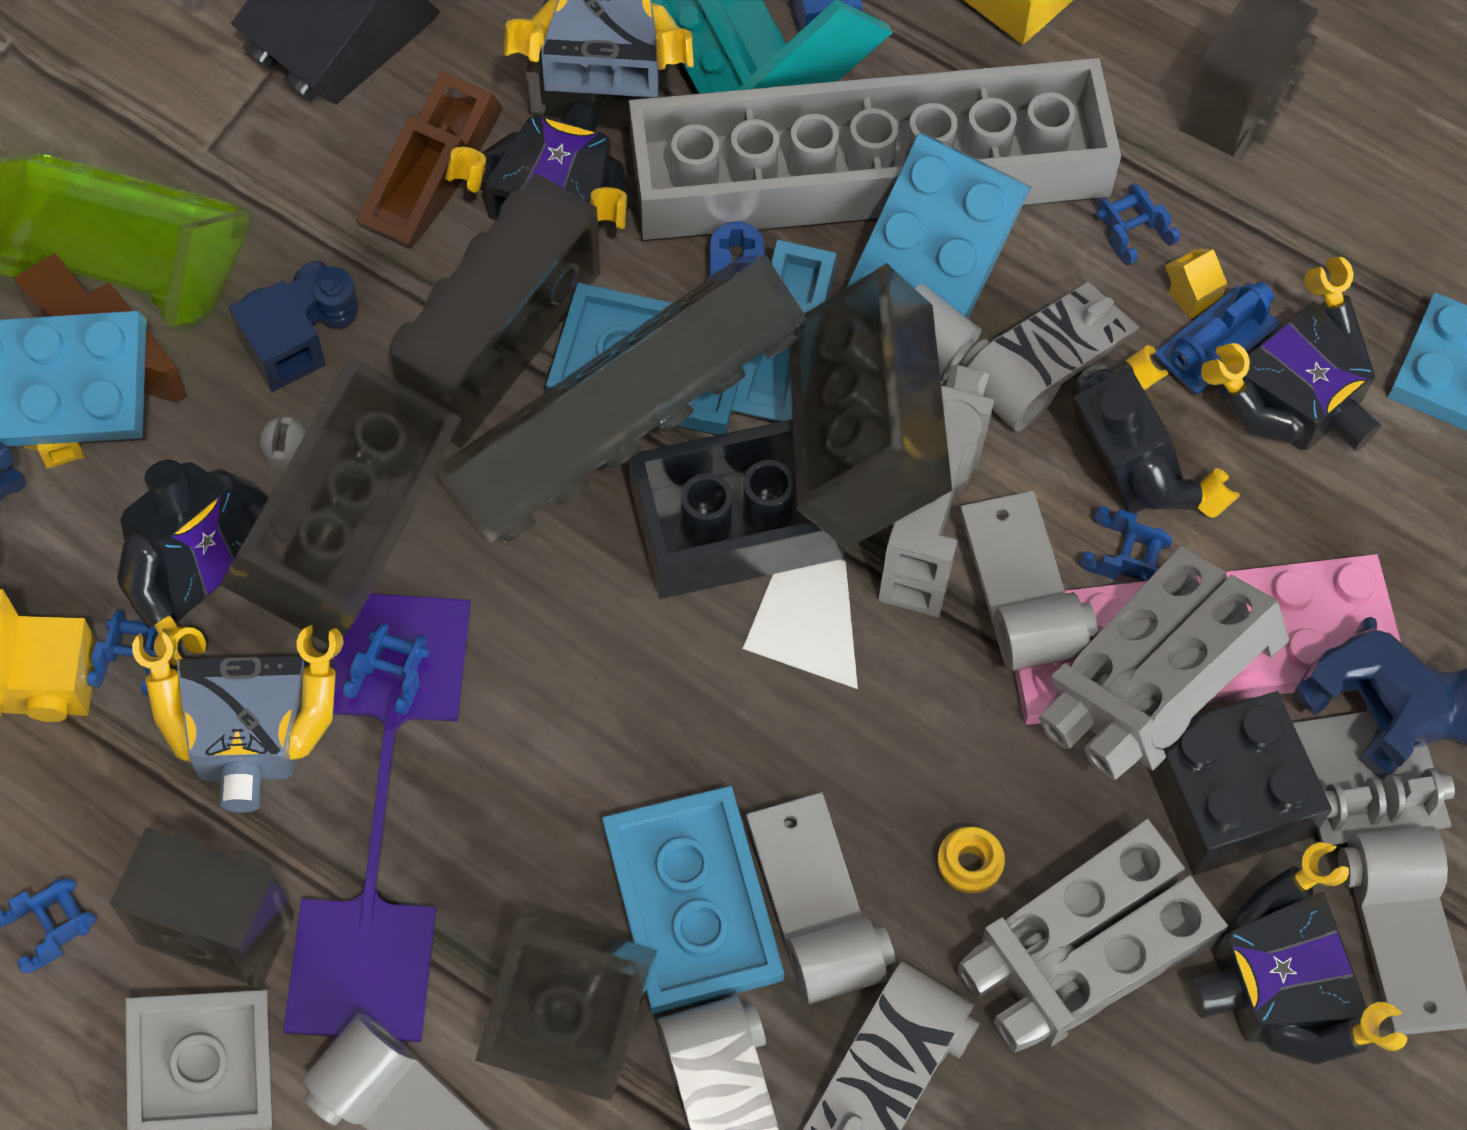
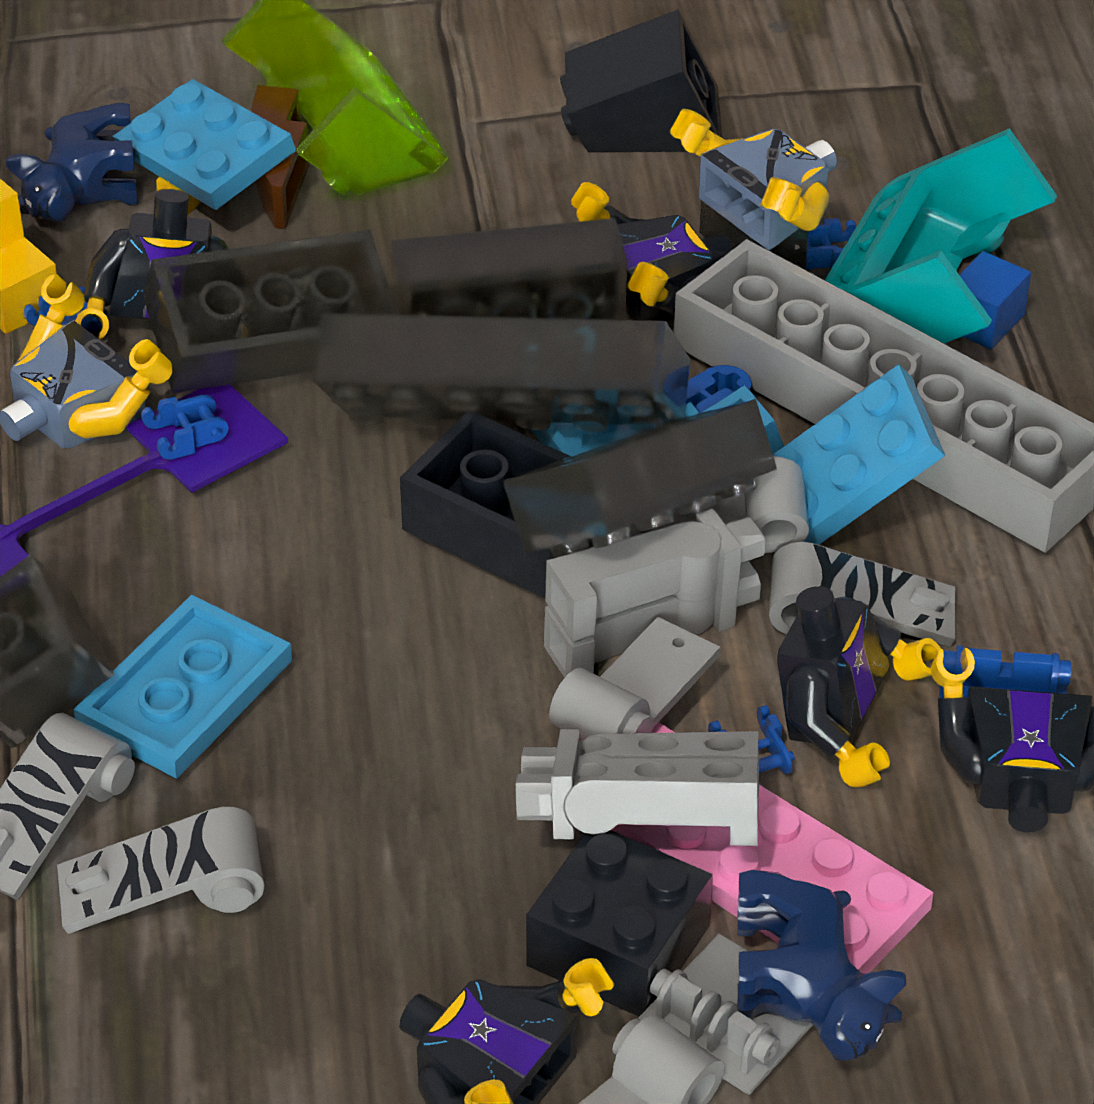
camera: 50 degrees right, 20 degrees down
(280, 321) = (390, 216): dark blue brick -> none
(413, 180) = (636, 192): reddish brown slope -> none
(808, 622) = (481, 620): white sticker -> none
(815, 901) = (256, 750): light grey door -> none
(977, 842) = (386, 816): yellow plate -> none
(1068, 985) = (390, 915): light grey hips -> none
(1153, 216) = (1020, 572): blue piece -> none
(1196, 281) = (1032, 631): yellow piece -> none

